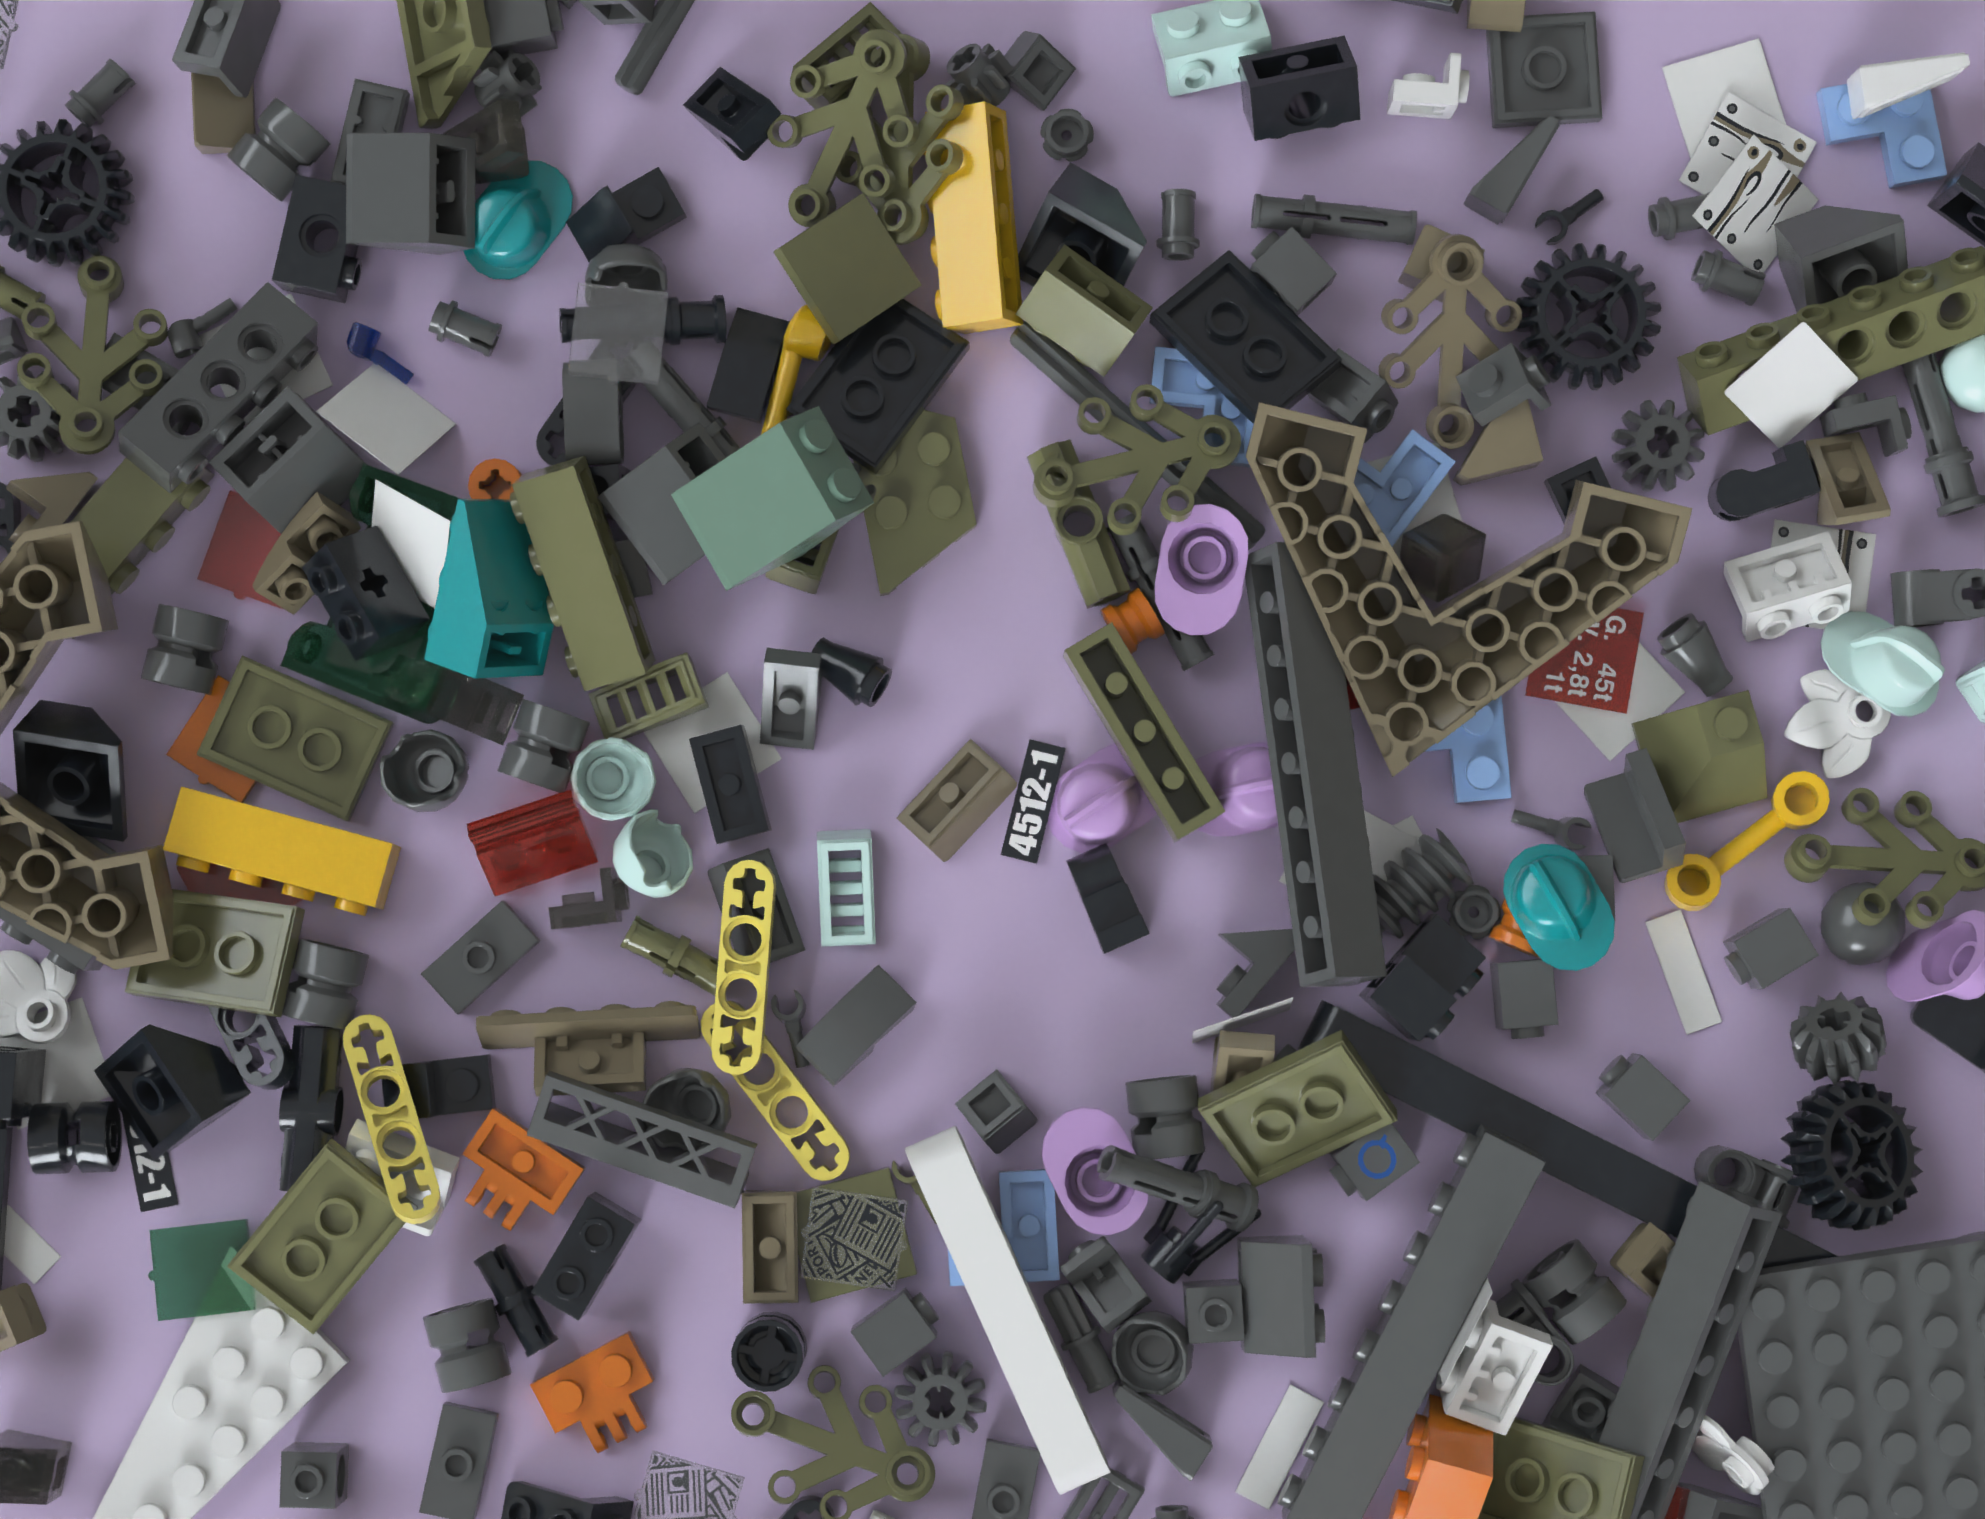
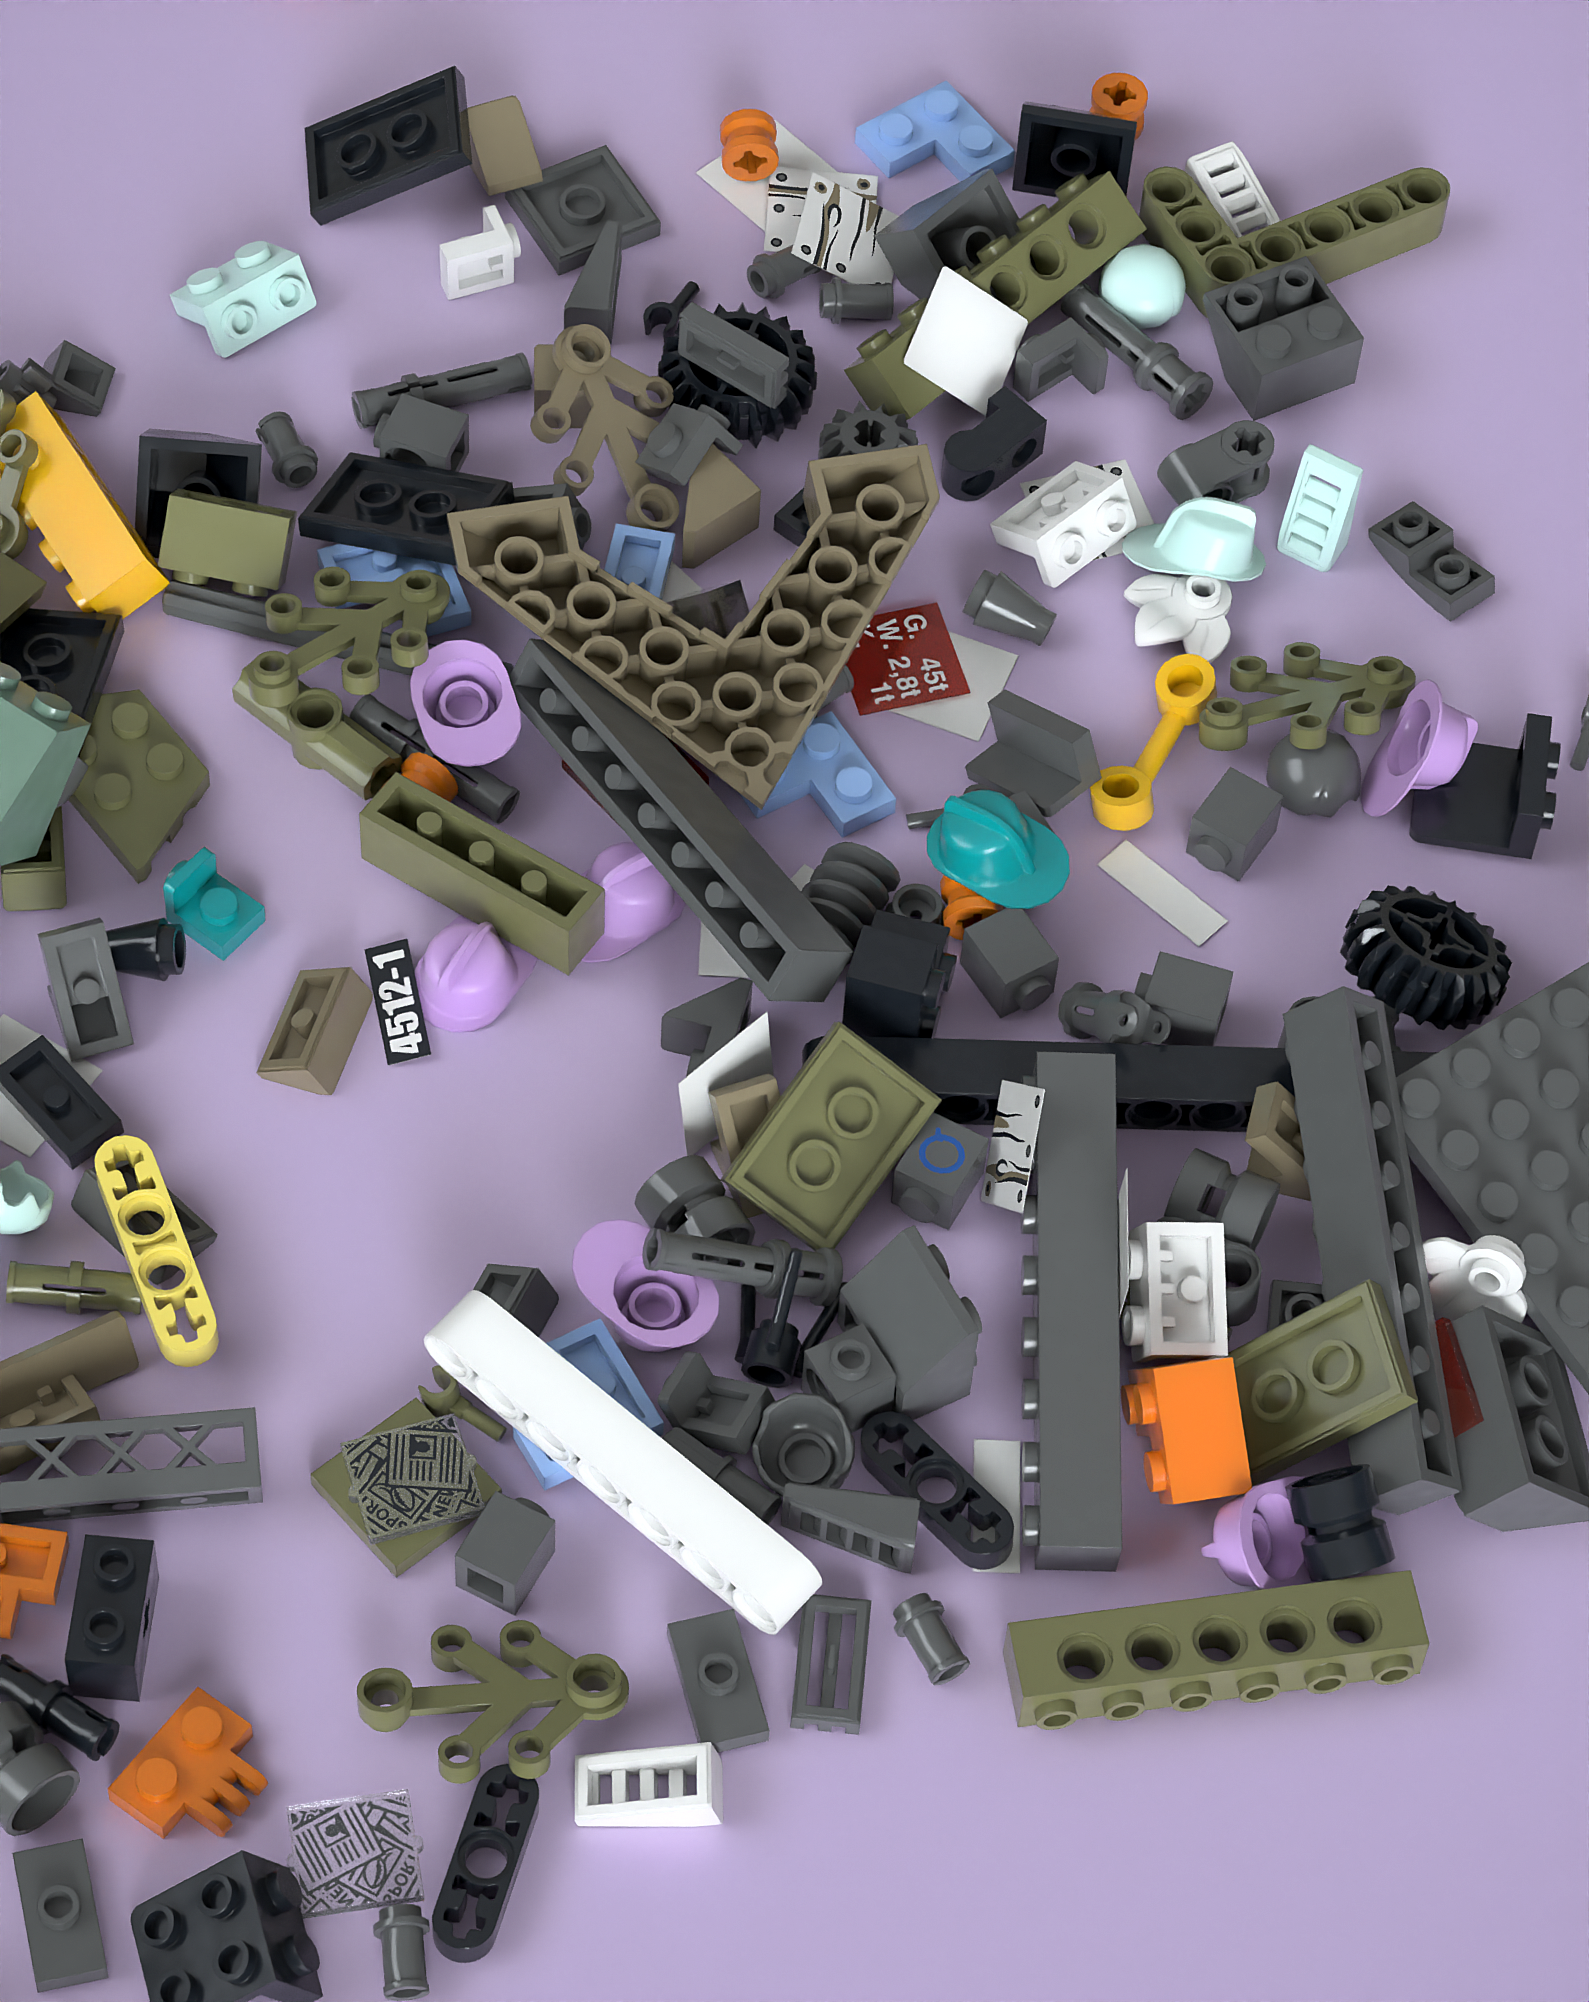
camera: 30 degrees left, 30 degrees down
(690, 1095) = (153, 1396): dark grey hair -> none
(769, 1351) = (371, 1620): black wheel -> none
(770, 1246) = (319, 1527): dark tan slope -> none
(781, 1085) = (256, 1369): light yellow beam -> none
(793, 1026) = (234, 1303): dark grey hand -> none
(839, 841) = (216, 1106): light aqua slope -> none
(856, 1025) = (308, 1271): dark grey slope -> none
(924, 653) = (209, 905): none -> teal bracket
(959, 1399) = (565, 1594): dark grey gear -> none
(1063, 121) = (131, 415): dark grey plate -> none
(1106, 898) = (526, 1051): black leg -> none
(1263, 1457) = (929, 1461): none -> black beam
(1299, 88) = (318, 290): black brick -> none
(1432, 1186) = (1012, 1146): none -> white sticker
(1575, 1094) = (1108, 1021): none -> dark grey piece
(1581, 324) = (732, 355): none -> dark grey tile
(1707, 755) = (1078, 671): olive slope -> none
(1716, 72) = (749, 145): none -> orange wheel
(1838, 1038) = (1348, 863): dark grey gear -> none
(1846, 480) = (1078, 416): dark tan slope -> none
(1888, 83) = (925, 78): white slope -> none

